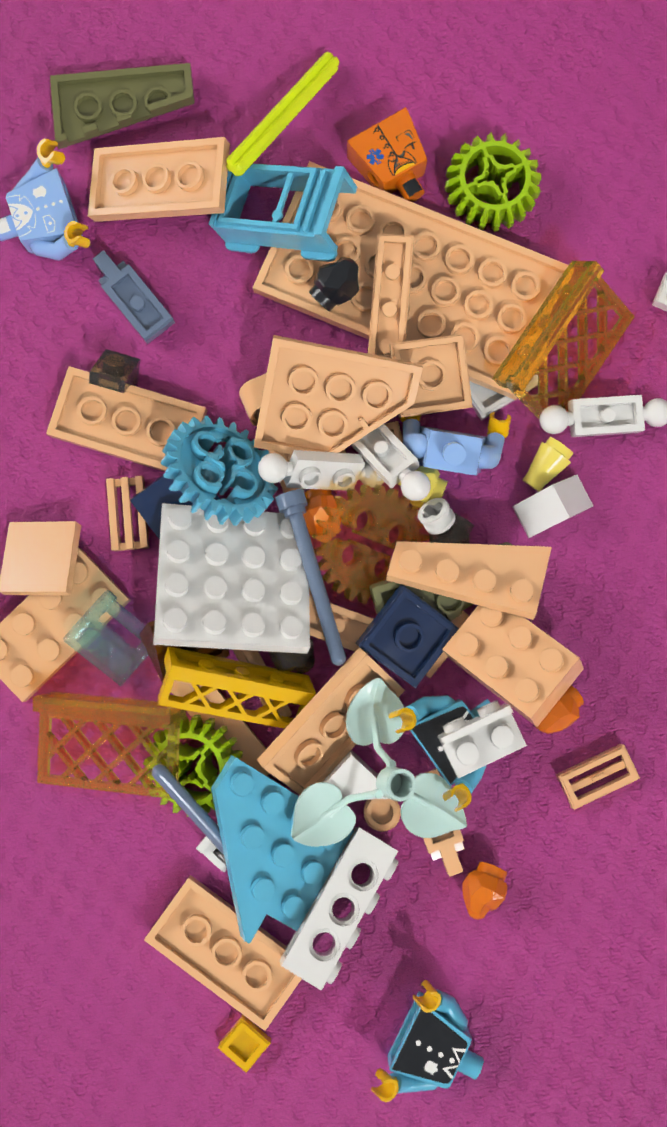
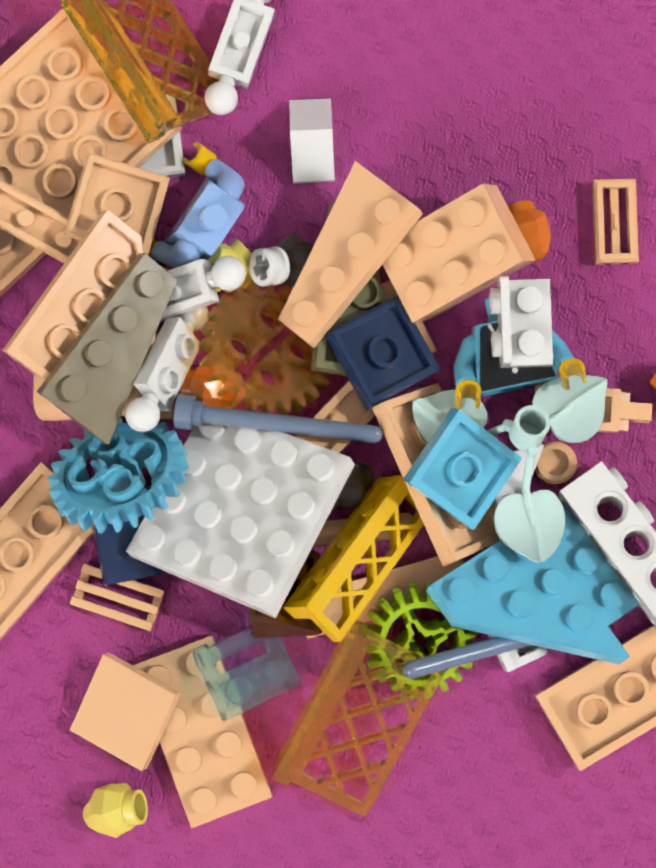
camera: 60 degrees left, 0 degrees up
(308, 419) = (105, 358): none -> dark tan wing
(341, 742) = (462, 468): none -> medium azure plate
(547, 464) = (264, 125): light yellow cone -> none

